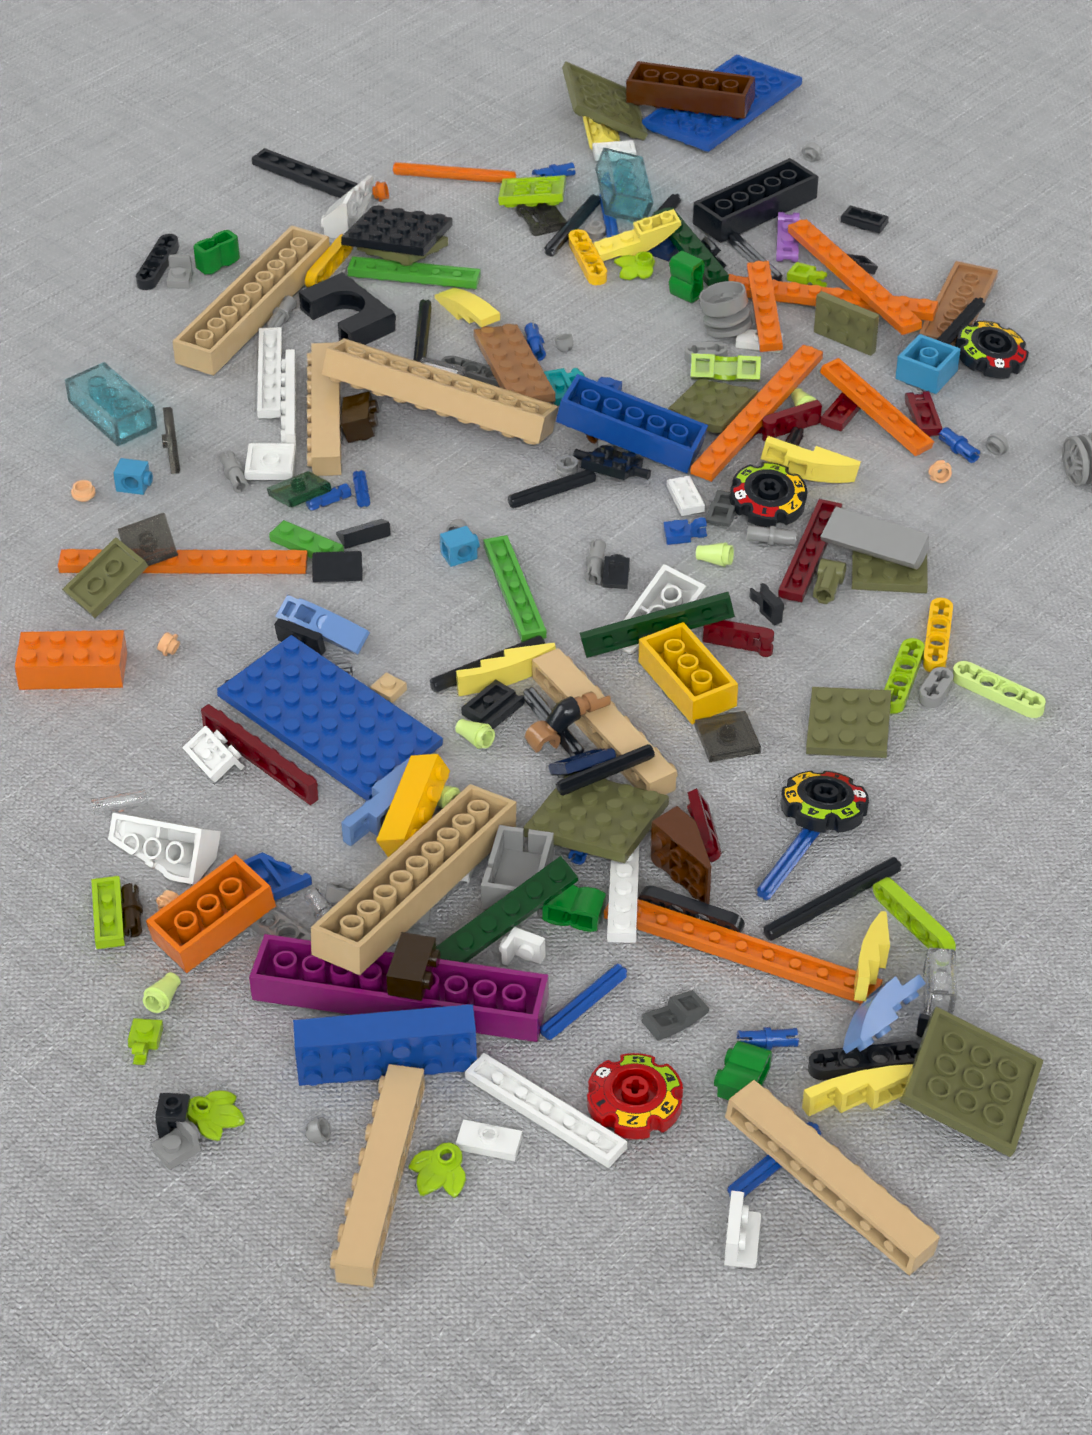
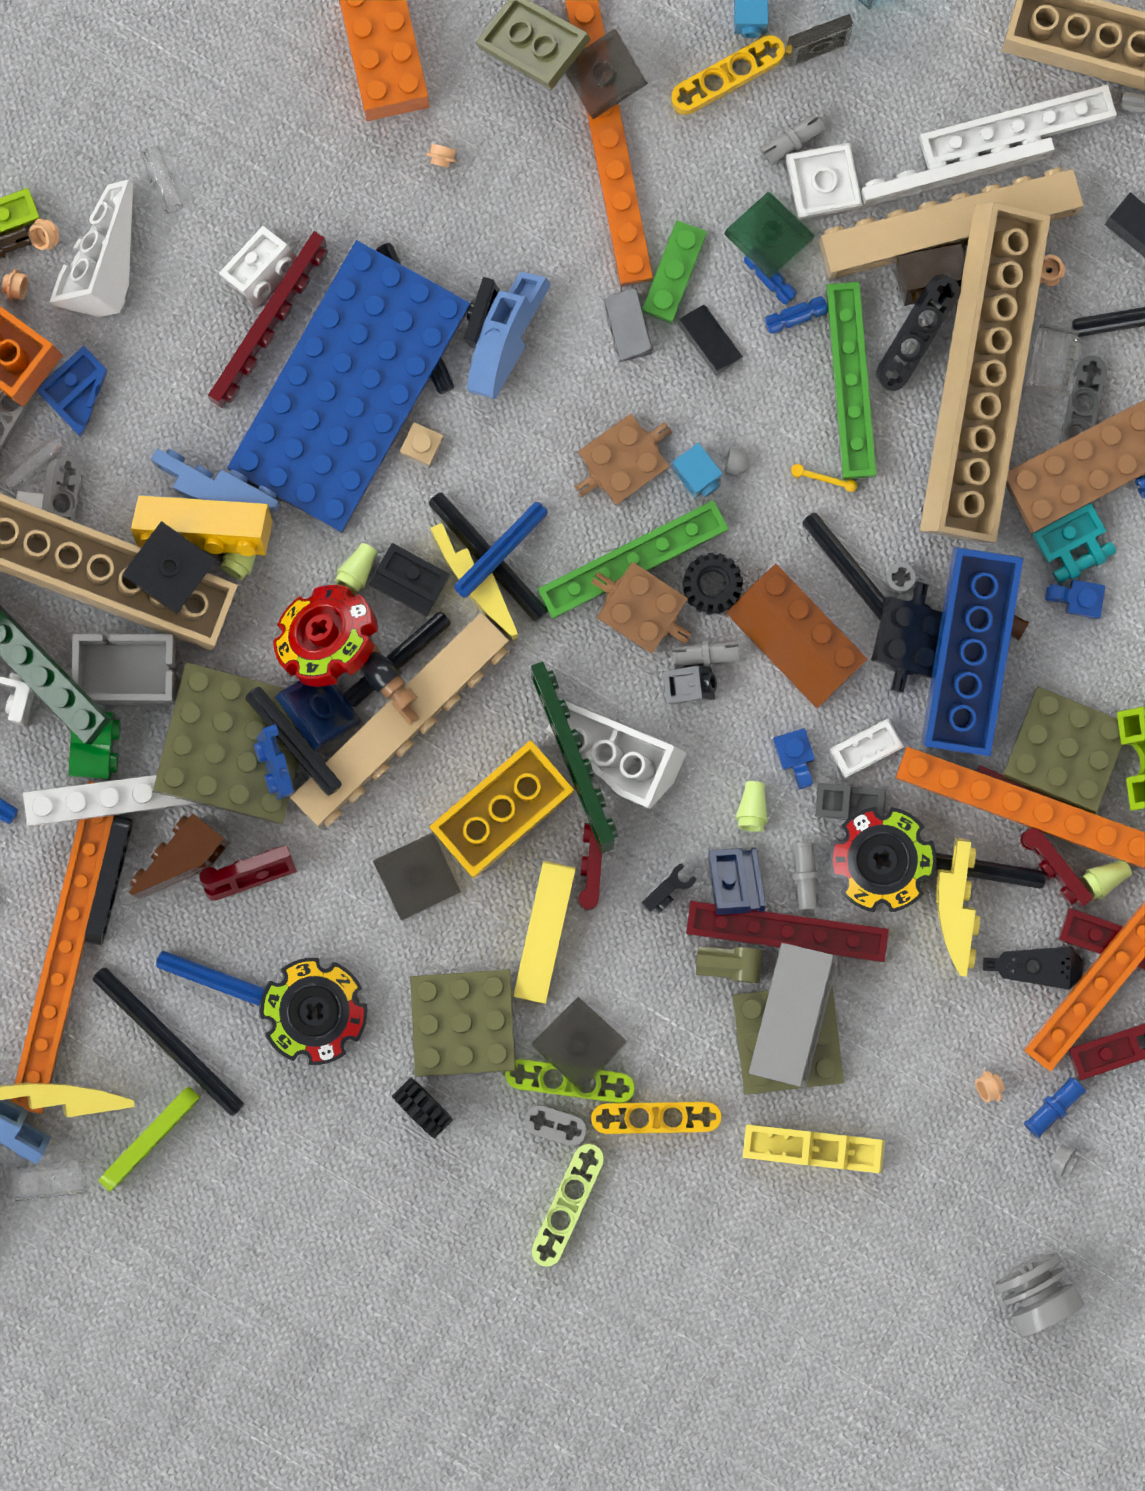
camera: 75 degrees right, 40 degrees up
(138, 871) = (44, 234): none -> light nougat plate
(173, 497) = (729, 78): none -> yellow beam
(397, 424) = (923, 334): none -> black beam
(419, 467) = (851, 380): none -> bright green plate
(437, 585) = (623, 459): none -> medium nougat plate
(445, 810) = (168, 567): none -> black plate
(474, 505) = (797, 471): none -> yellow hinge
(487, 644) = (500, 549): none -> blue axle
(525, 746) = (325, 635): none -> red piece
(544, 560) = (718, 564): none -> black tyre
(552, 584) = (641, 607): none -> medium nougat plate
(594, 513) = (796, 636): none -> dark orange slope
(620, 774) = (267, 751): none -> blue wing
(768, 564) = (736, 881): none -> plate
(780, 664) = (544, 932): none -> light yellow slope
(859, 434) = (1049, 966): none -> black piece
(875, 661) = (579, 1043): none -> clear smoke plate
(913, 744) = (422, 1107): none -> black tyre
(972, 558) = (813, 1148): none -> light yellow slope

